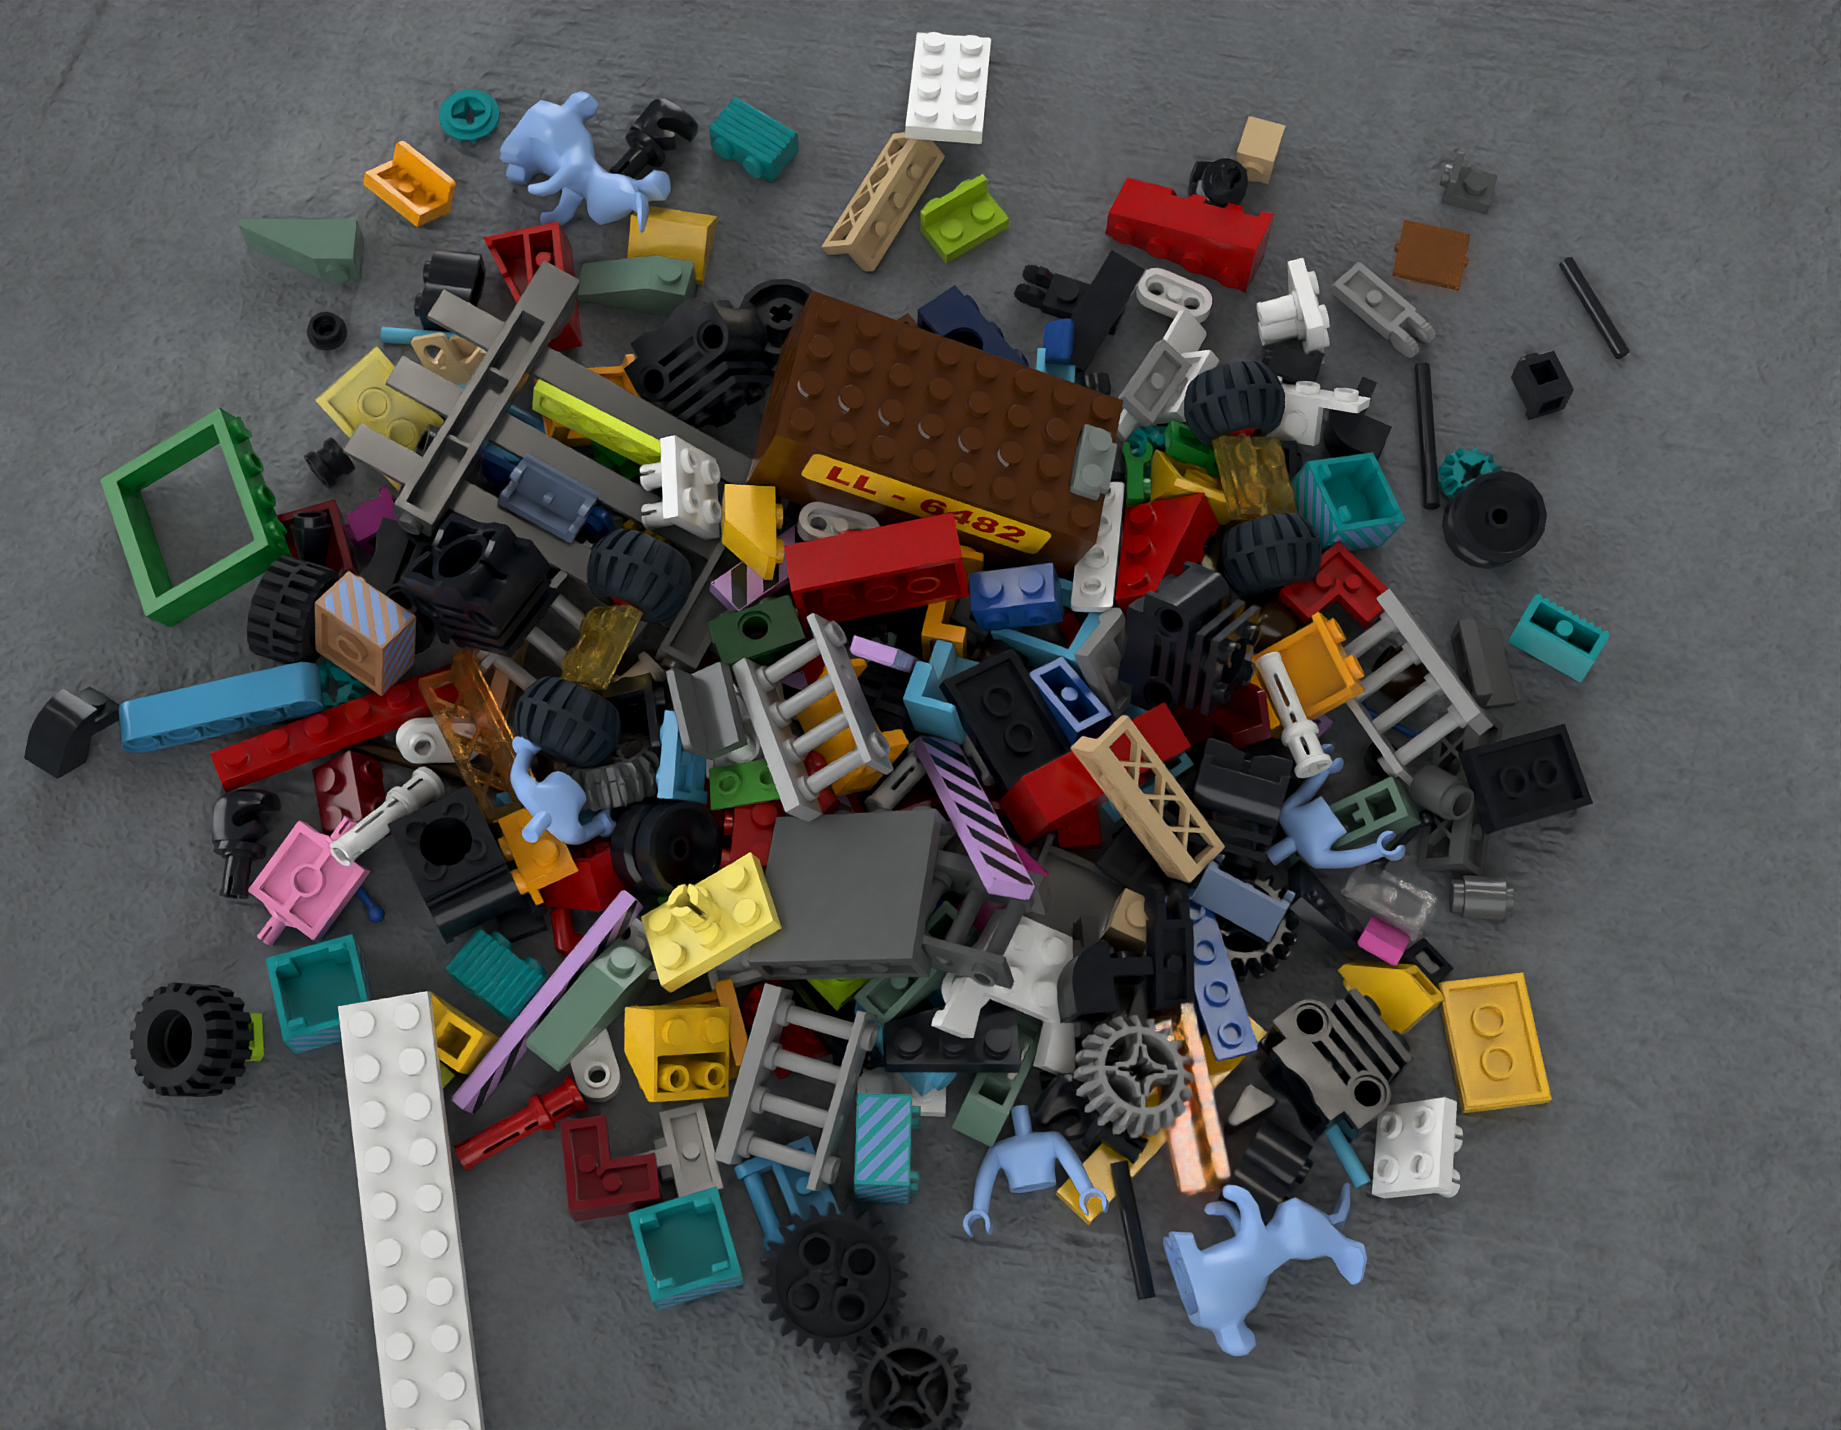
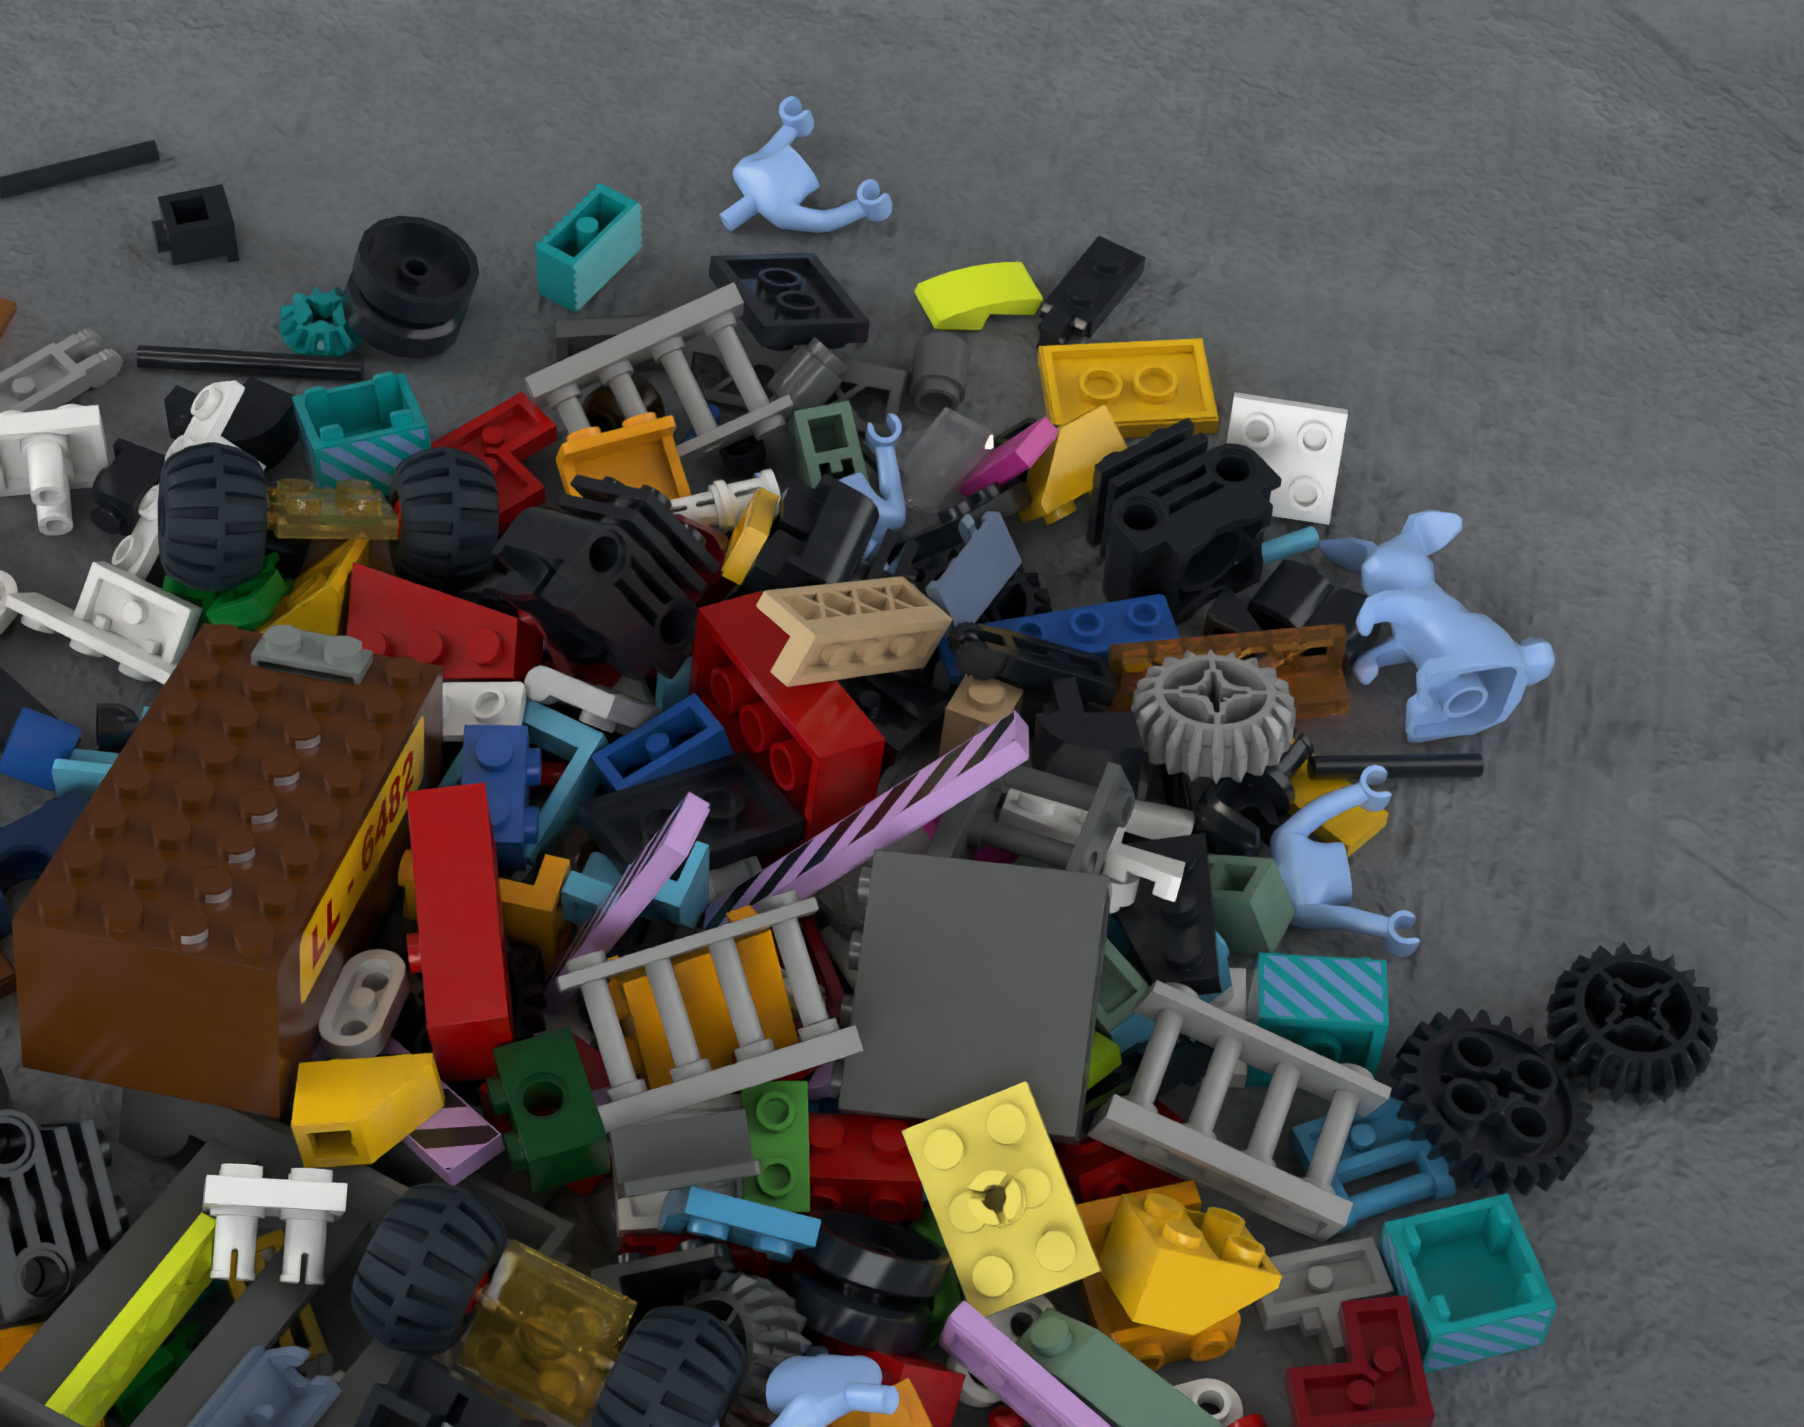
camera: 90 degrees left, 15 degrees down
(1154, 382) = (133, 630): light grey plate -> none
(1254, 742) = (749, 535): none -> yellow tile
(1570, 926) = (971, 294): none -> neon yellow slope
(1589, 1012) = (1089, 292): none -> black hinge
(1662, 774) = (780, 180): none -> light blue piece

